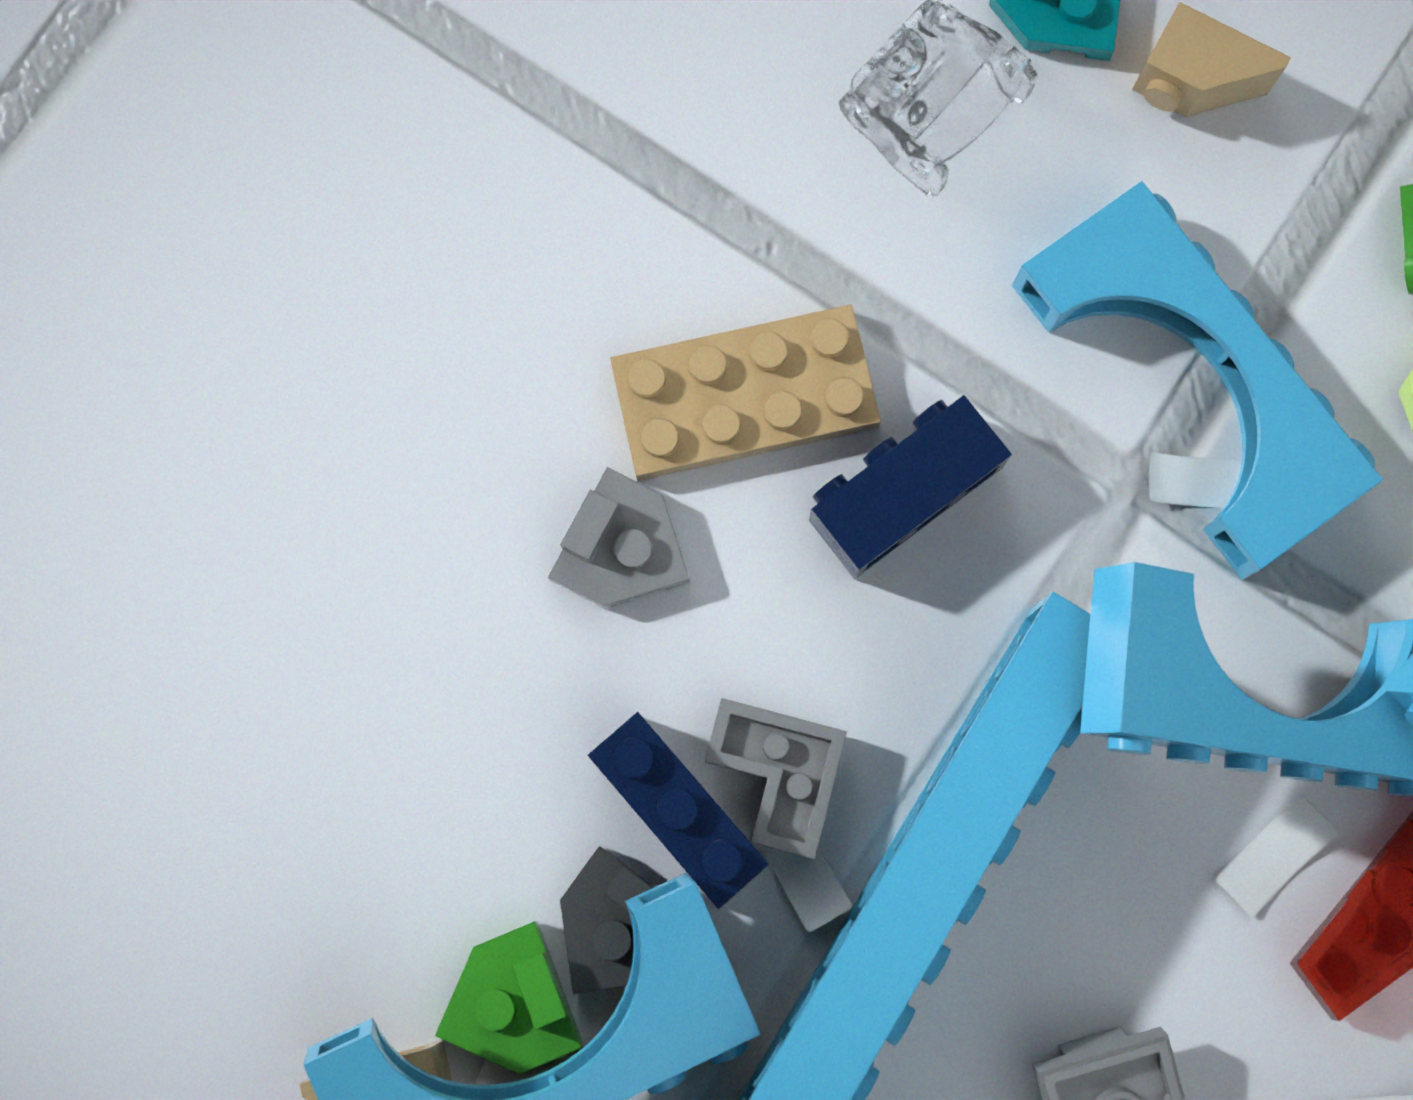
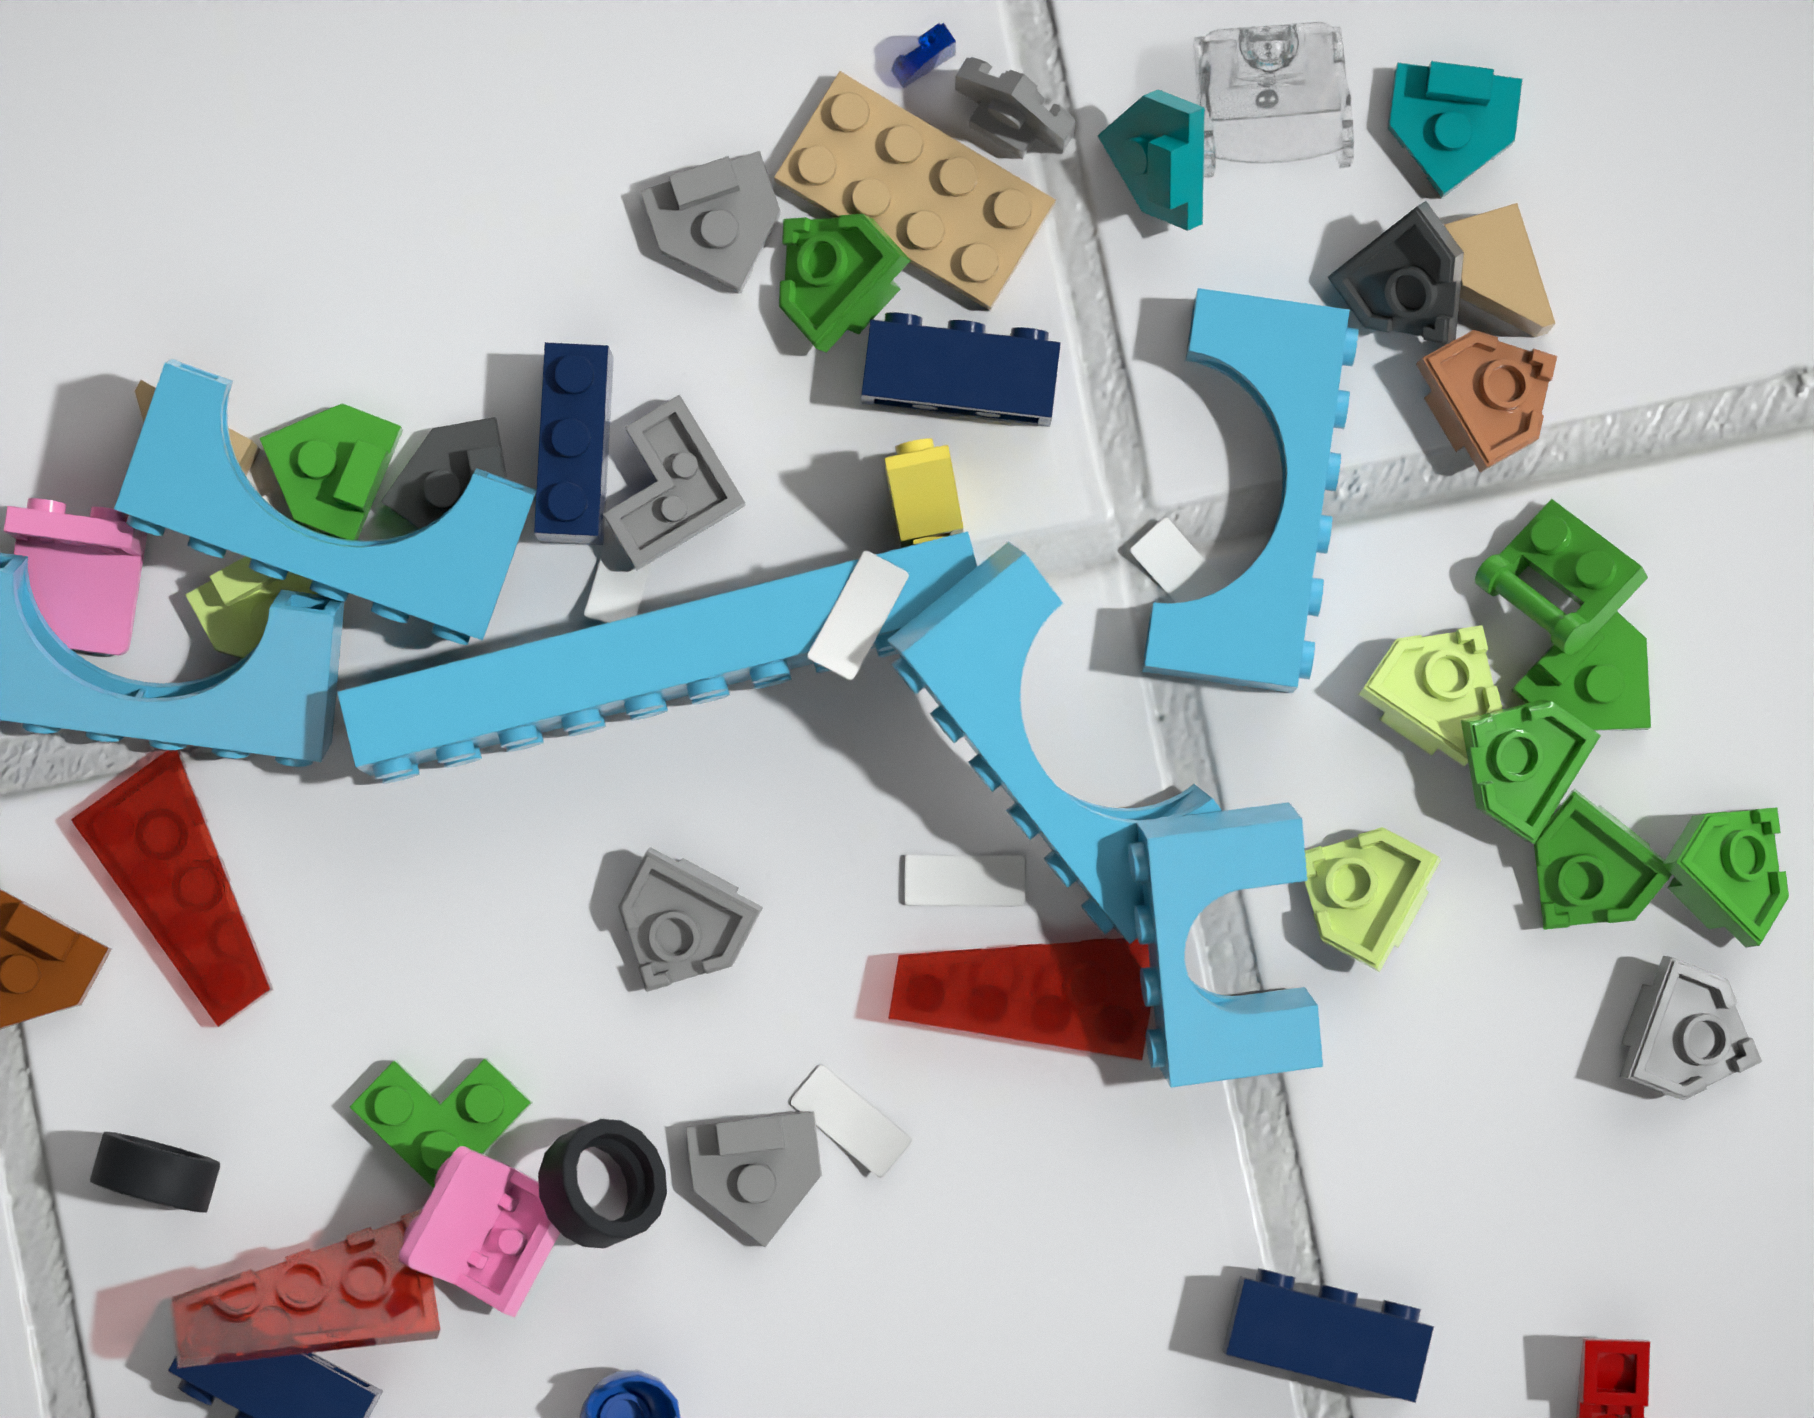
camera: 40 degrees right, 5 degrees up
(663, 275) = (935, 48): none -> clear blue tile
(750, 501) = (837, 275): none -> bright green plate
(760, 266) = (1012, 109): none -> light grey plate
(900, 200) = (1161, 156): none -> teal plate
(973, 598) = (923, 492): none -> light yellow slope
(1037, 736) = (858, 615): none -> white sticker
(1152, 125) = (1406, 279): none -> dark grey plate
(1286, 159) = (1487, 395): none -> nougat plate

